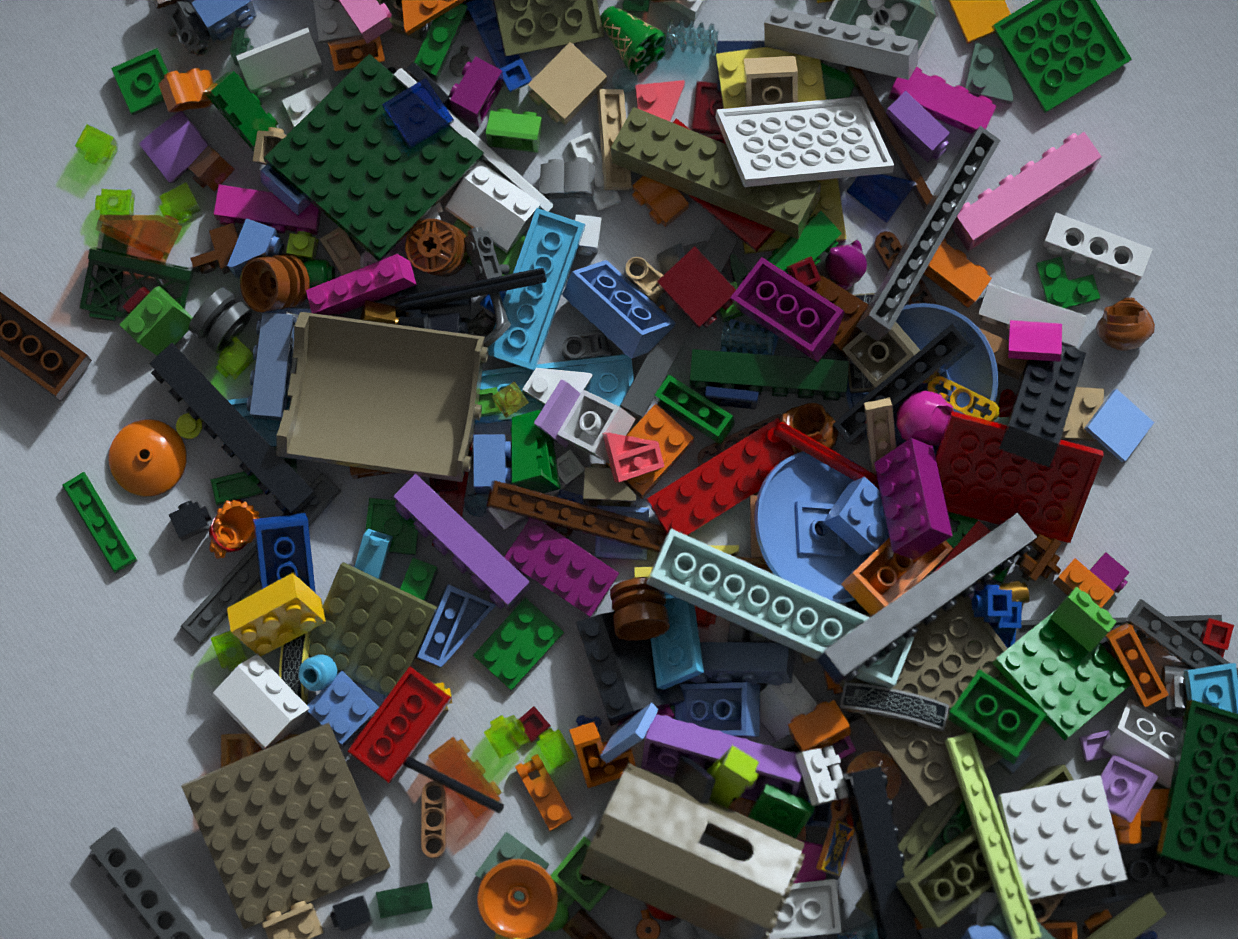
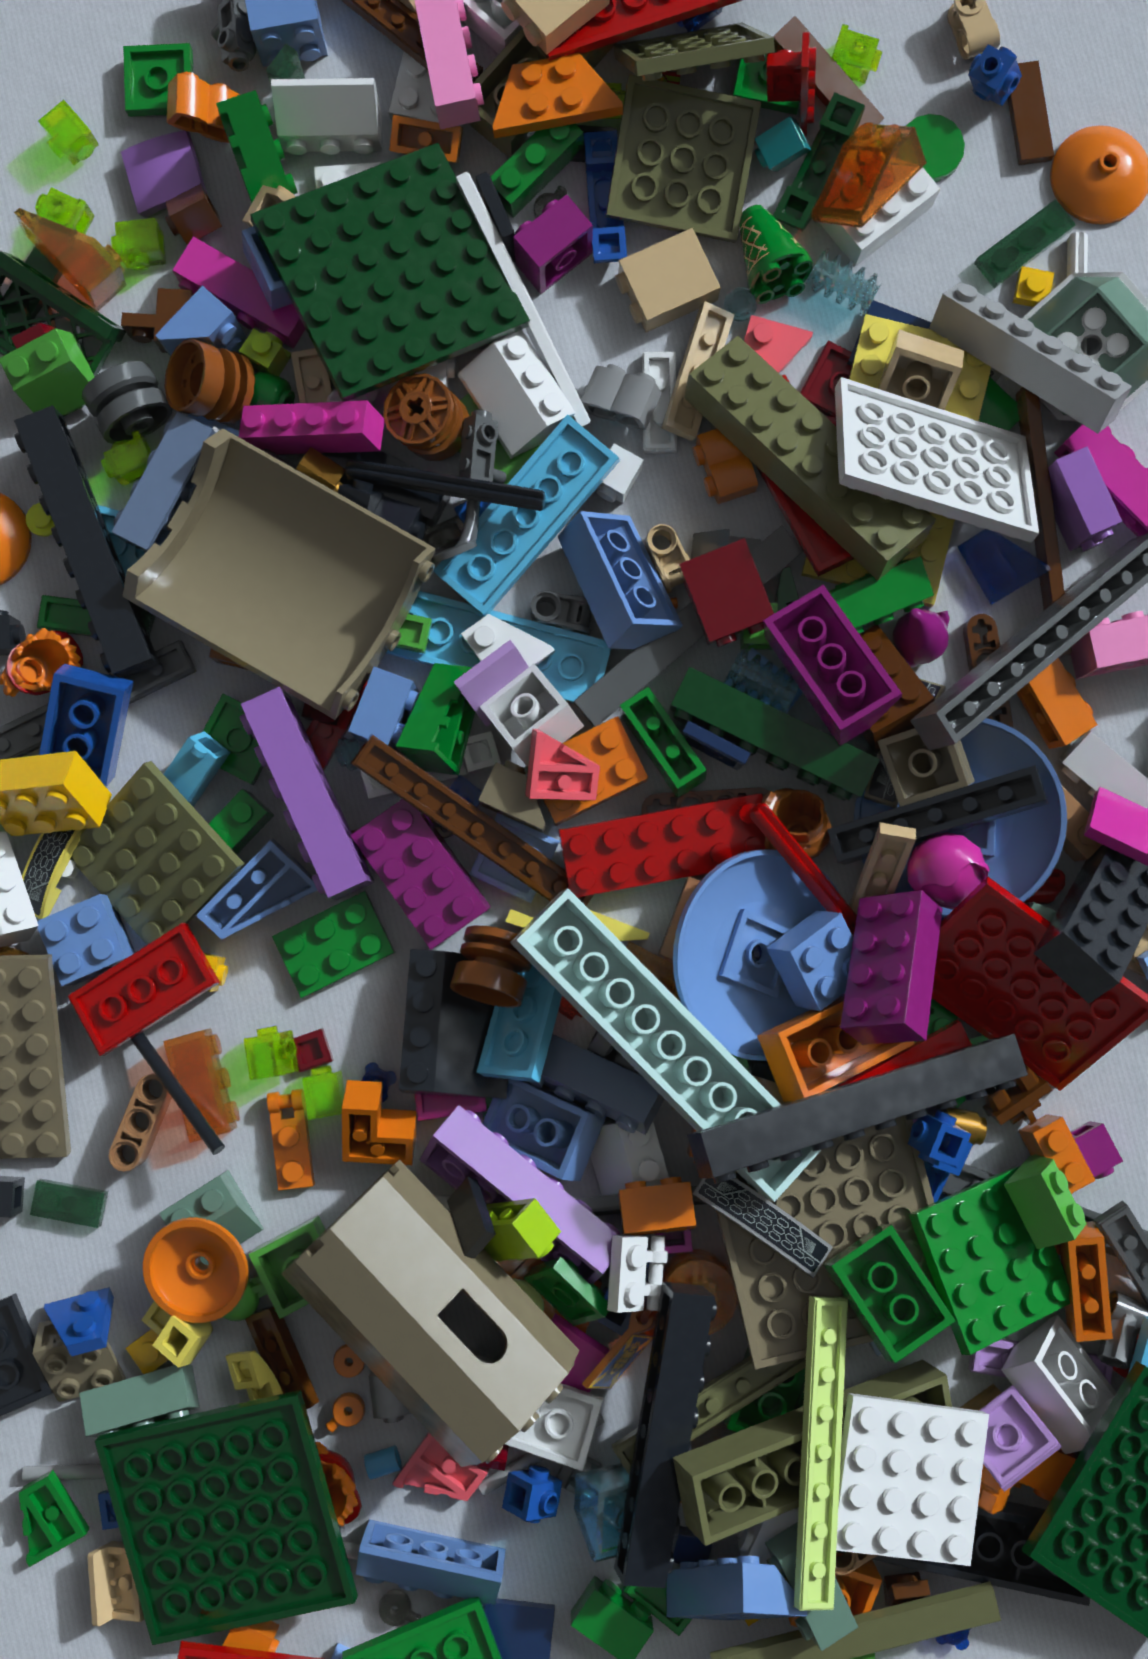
camera: 20 degrees right, 5 degrees up
(317, 672) = (67, 885): medium azure head -> none
(417, 113) = (466, 235): clear blue tile -> none
(510, 399) = (440, 640): clear yellow plate -> none
(514, 130) = (579, 312): bright green slope -> none
(629, 733) = (416, 1119): light blue tile -> none
(804, 271) = (870, 624): dark red tile -> none
(983, 401) = (1030, 879): yellow beam -> none

